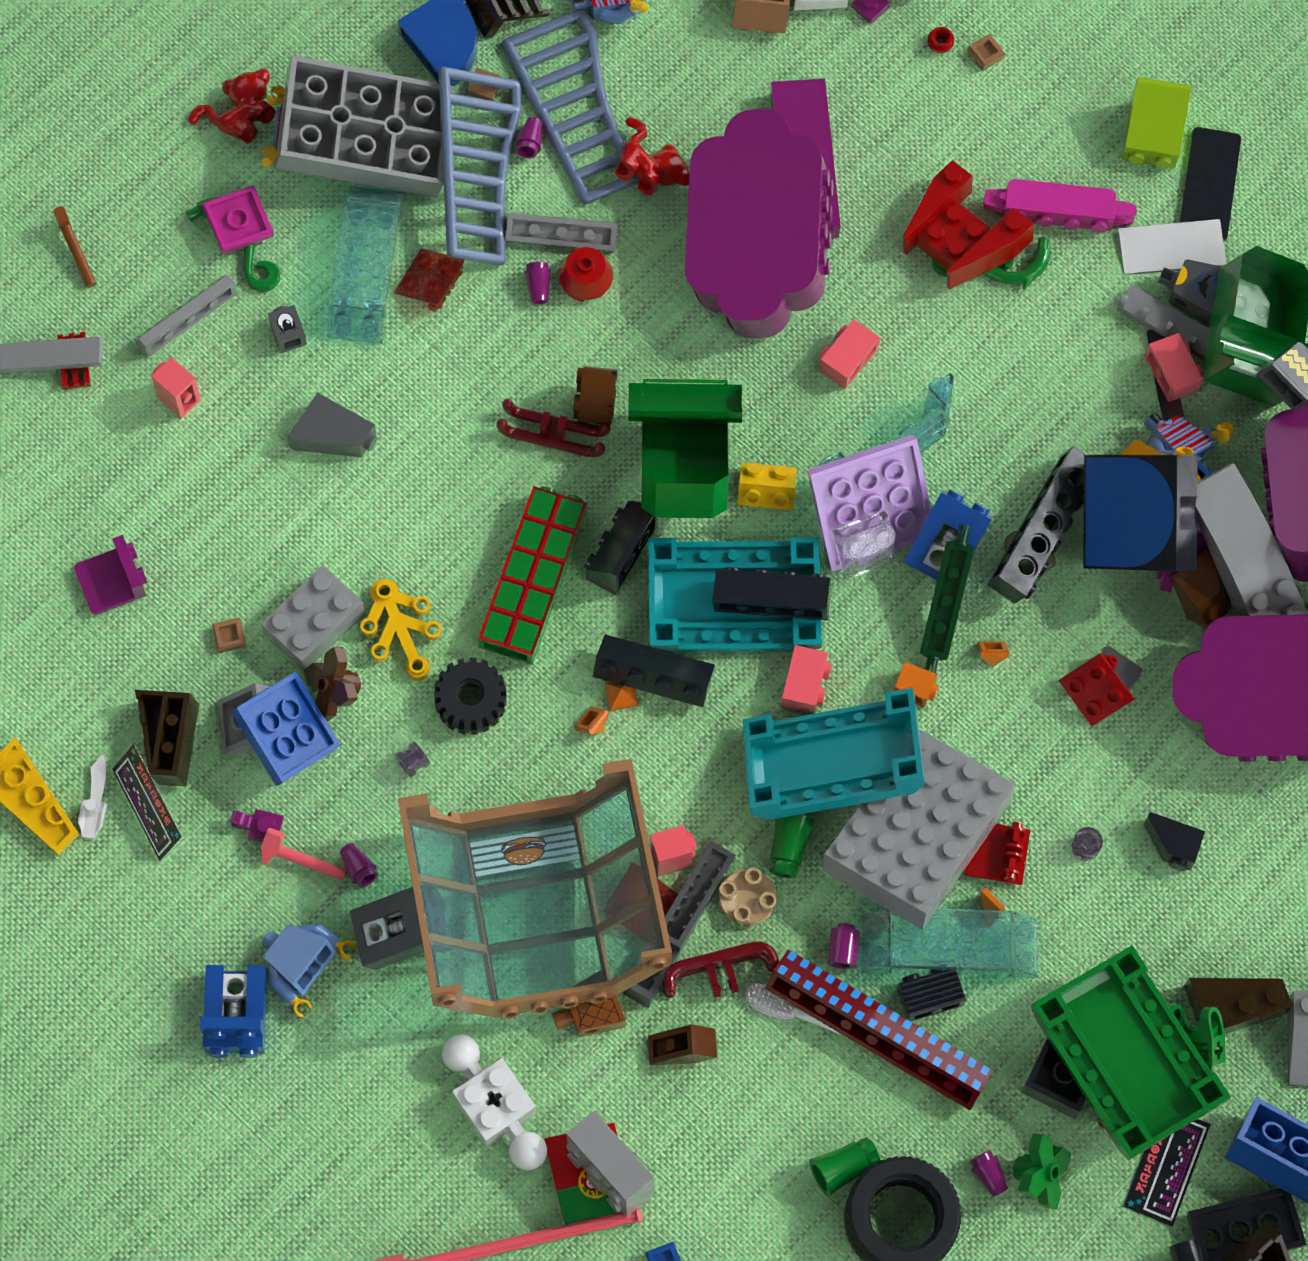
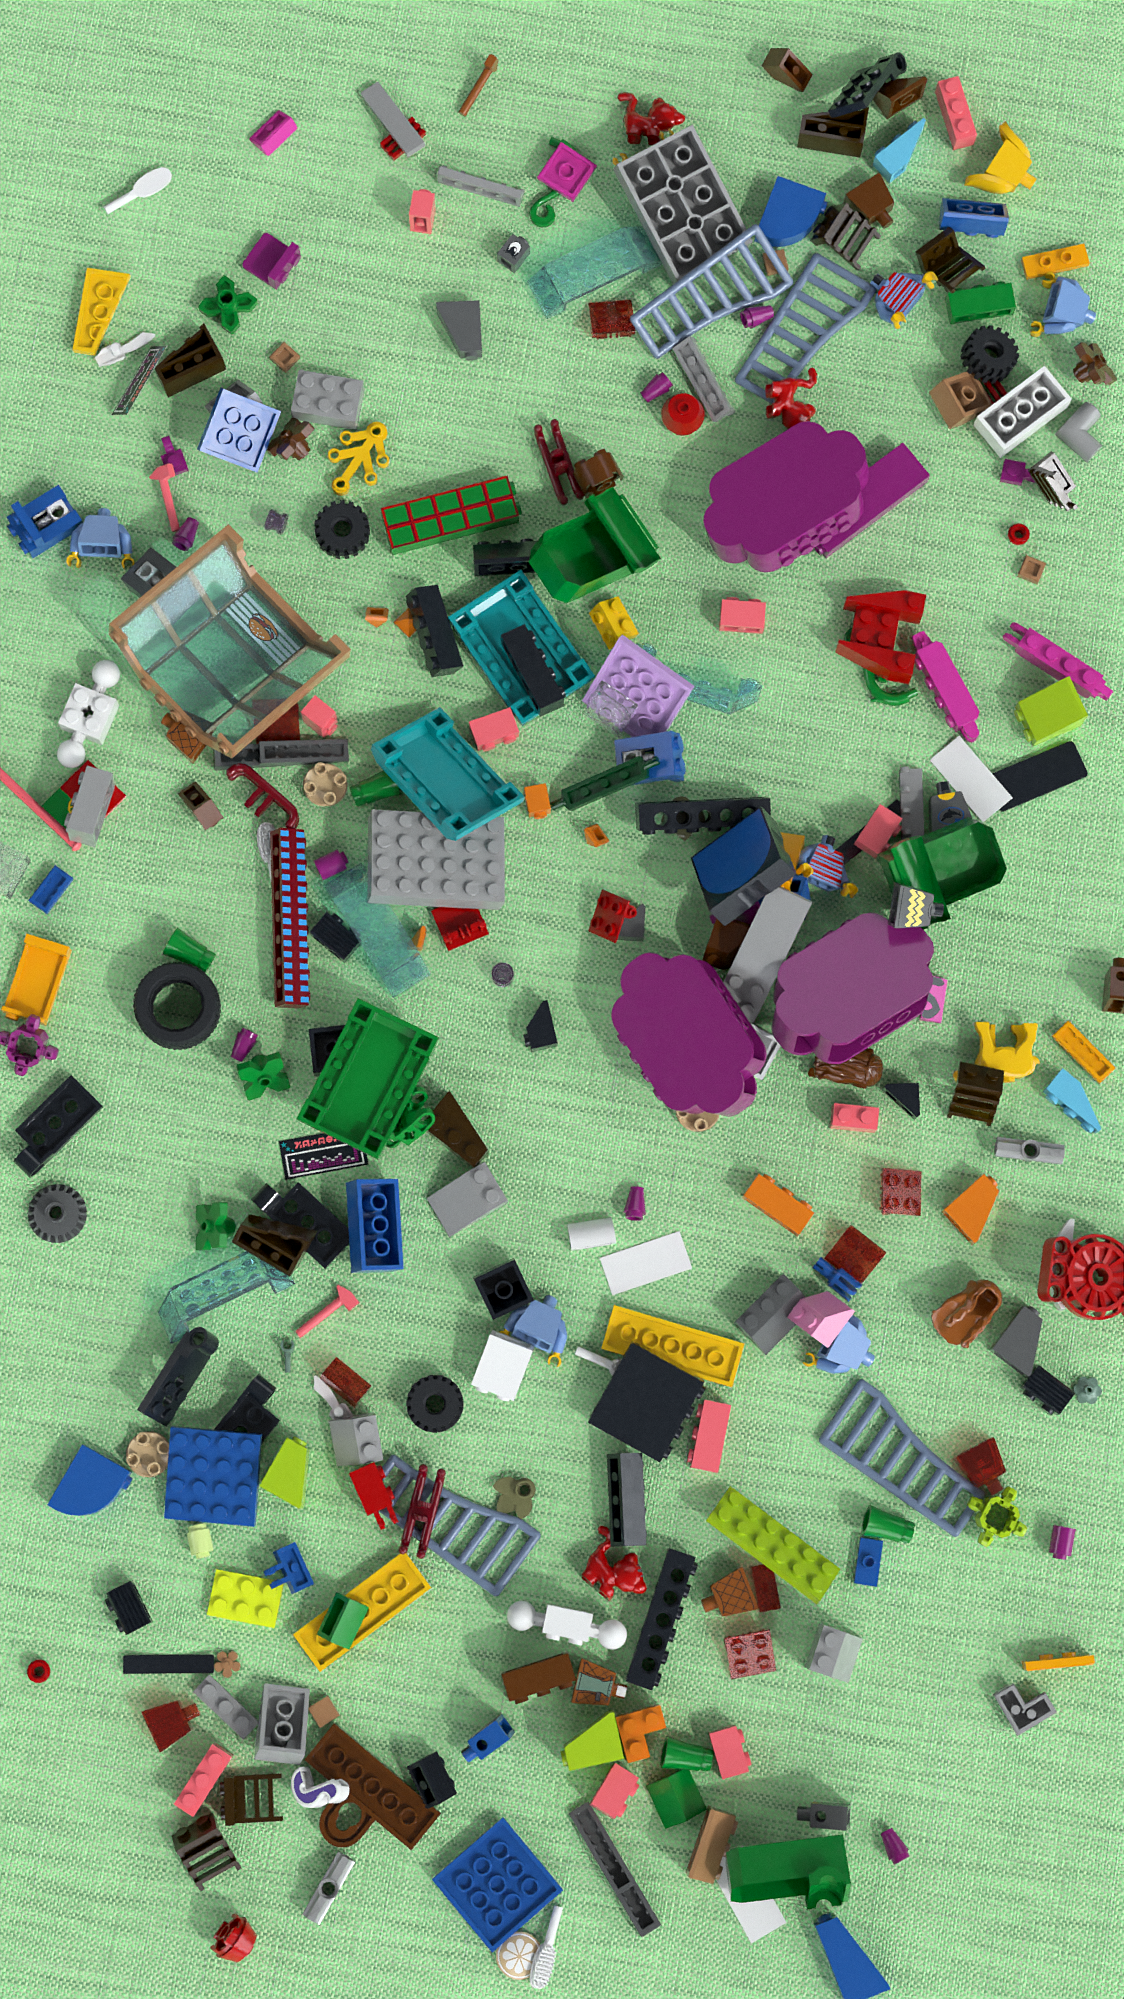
camera: 55 degrees right, 10 degrees up
(127, 655) = (228, 304): none -> green plant
(1103, 86) = (1057, 662): none -> dark pink hinge

